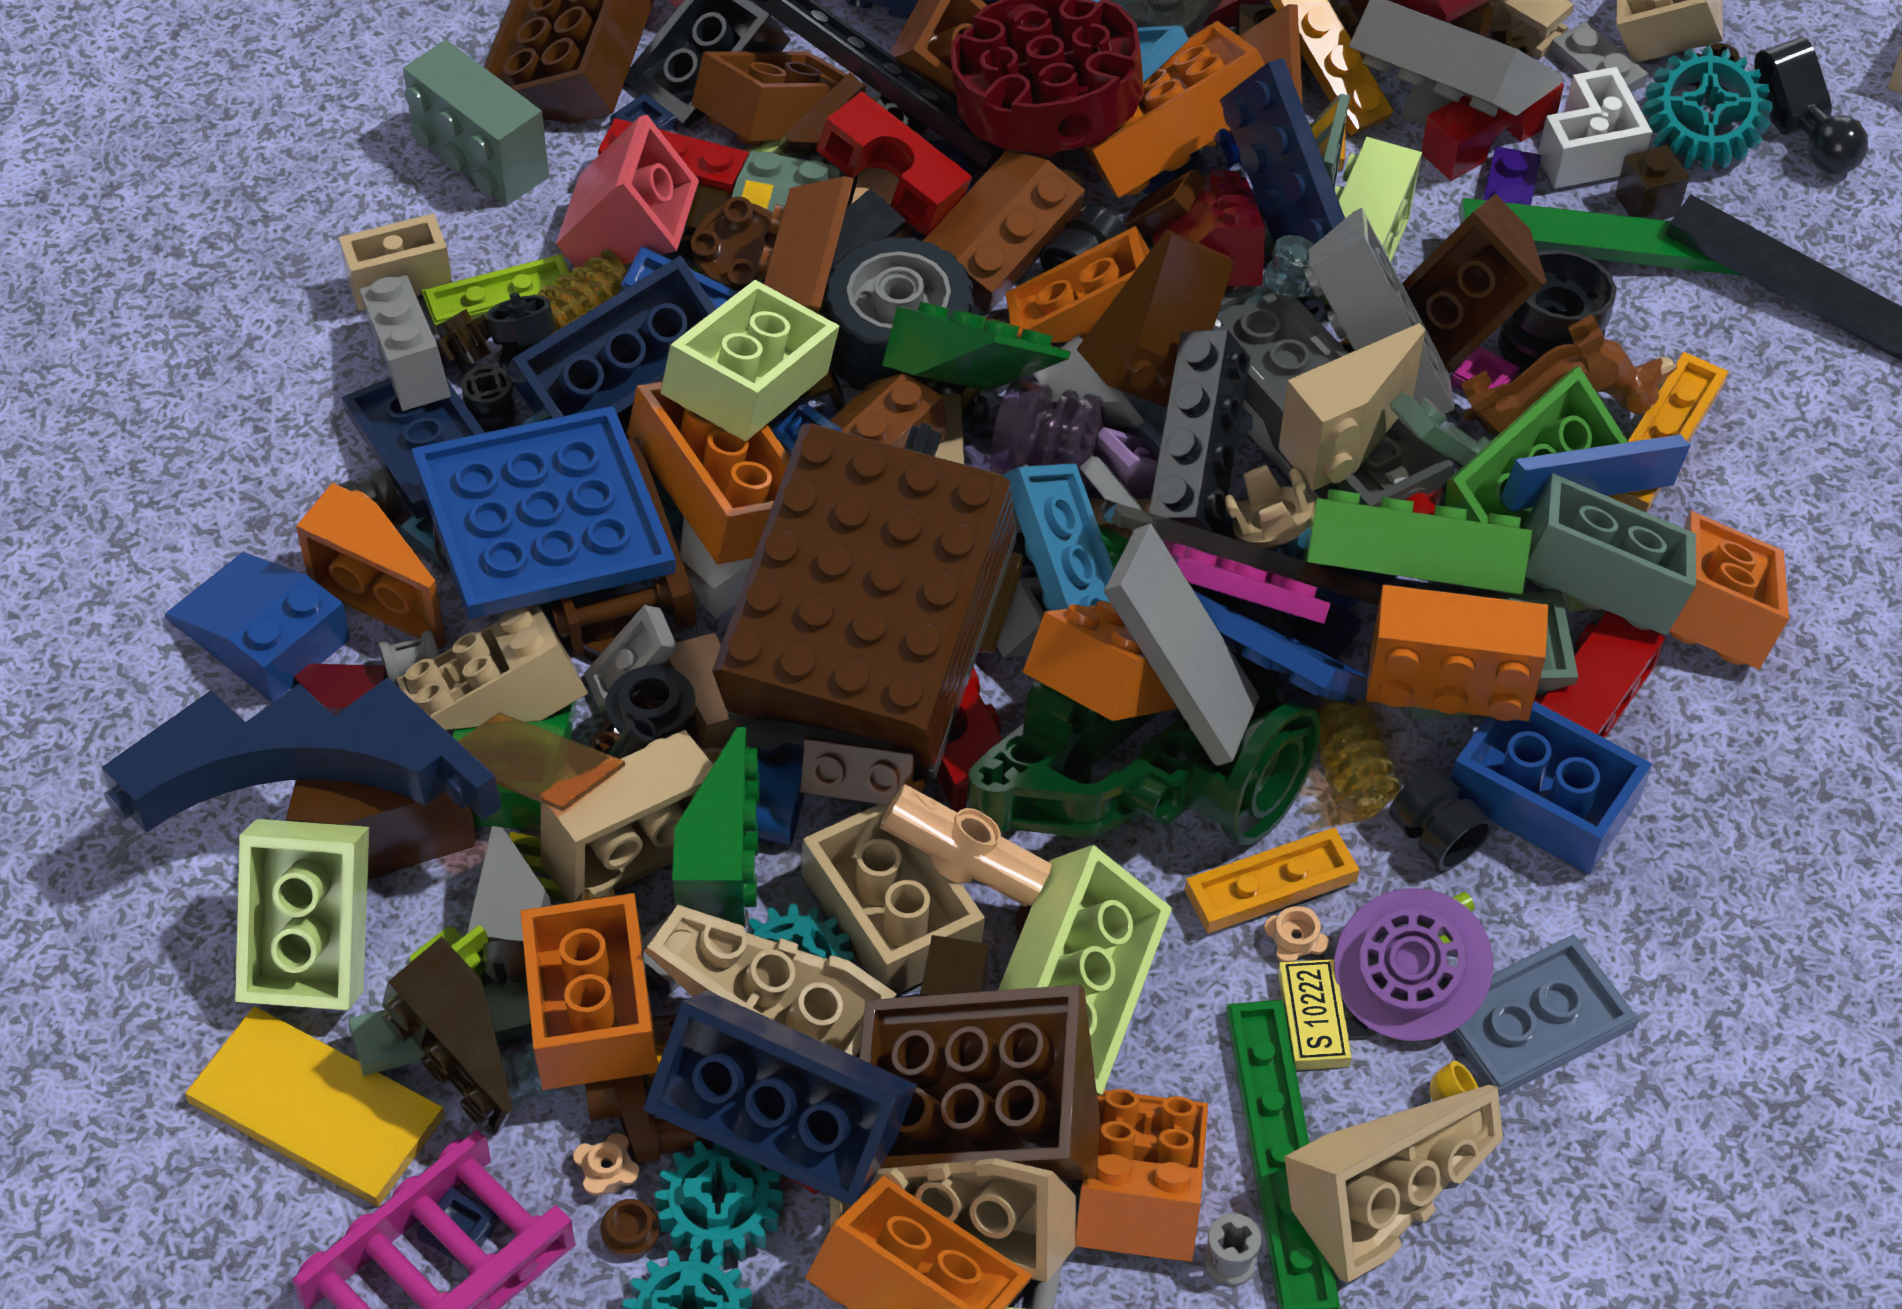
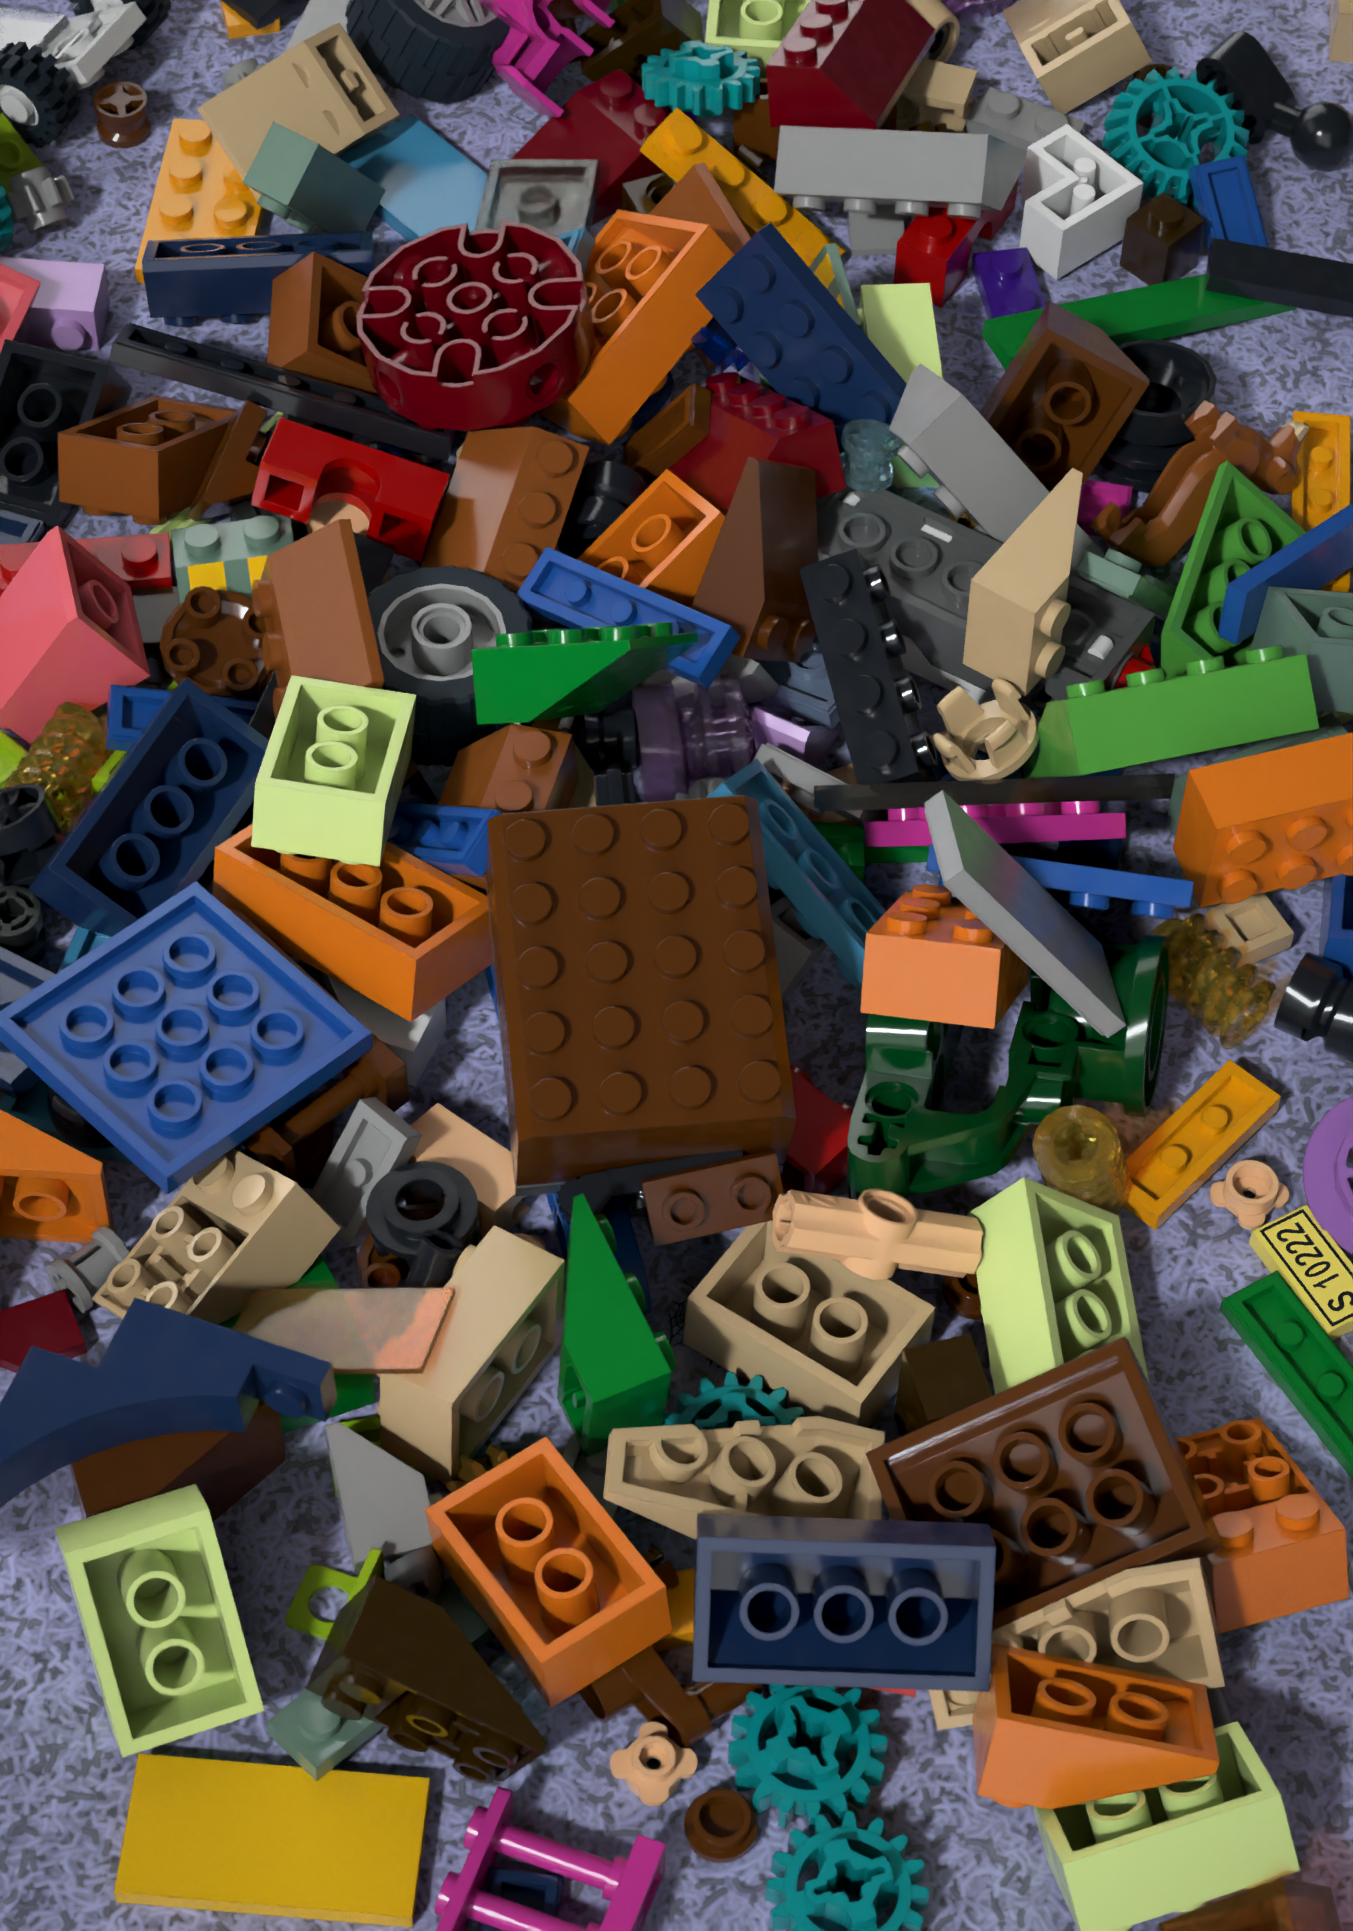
camera: 25 degrees left, 0 degrees up
(1021, 302) = (590, 597): none -> blue plate
(1159, 854) = (1083, 1157): none -> clear yellow piece
(1412, 735) = (1252, 927): none -> tan plate
(1722, 171) = (1227, 201): none -> blue tile

